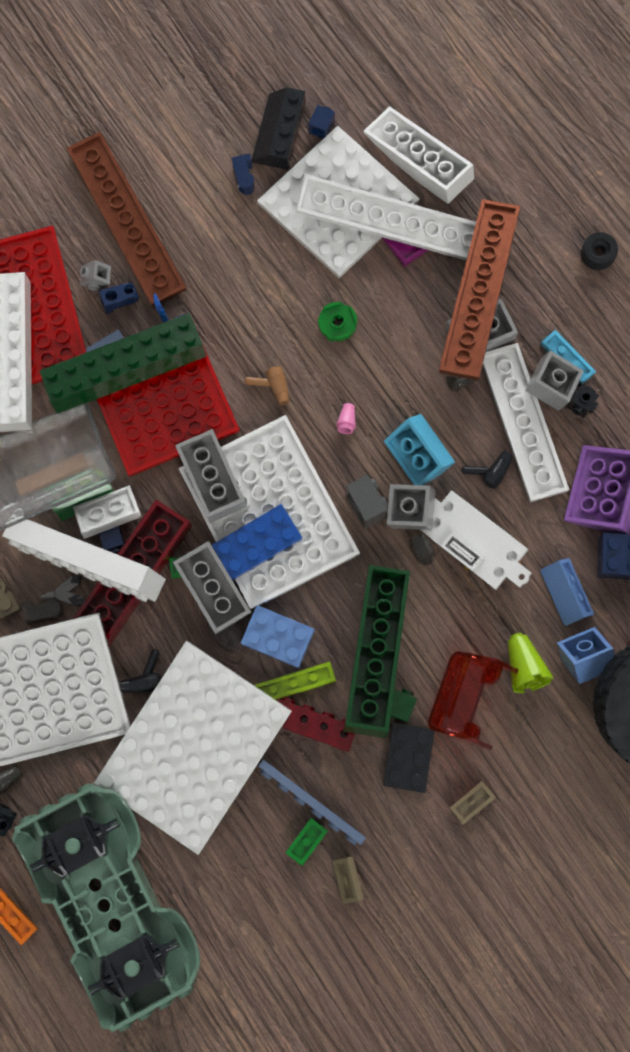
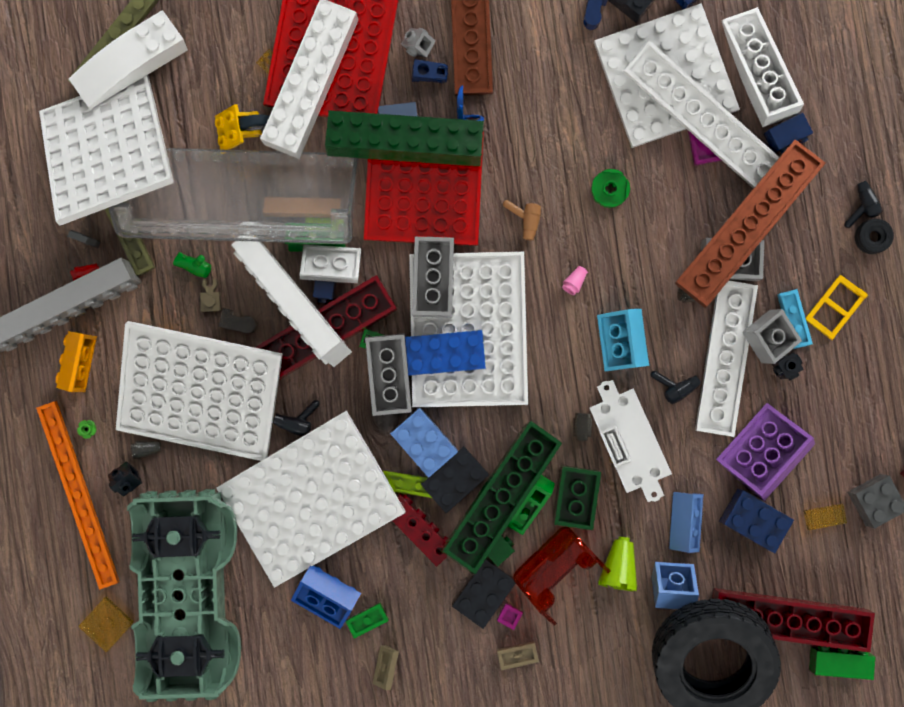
camera: 25 degrees right, 10 degrees up
(44, 979) = (106, 624): none -> clear yellow tile
(63, 592) = (261, 315): light grey piece -> none
(253, 838) = (325, 596): none -> blue slope
(317, 808) = (389, 599): sand blue plate -> none
(325, 659) = (455, 479): none -> black plate
(366, 501) = (556, 363): dark grey brick -> none
(410, 648) = (532, 505): none -> green slope
(411, 507) = (591, 387): light grey brick -> none
(444, 767) = (509, 616): none -> magenta plate
(450, 617) = (576, 497): none -> dark green brick
(469, 201) = (784, 134): none -> dark blue brick
(579, 224) = (869, 204): none -> black piece
(617, 307) = (846, 315): none -> yellow window

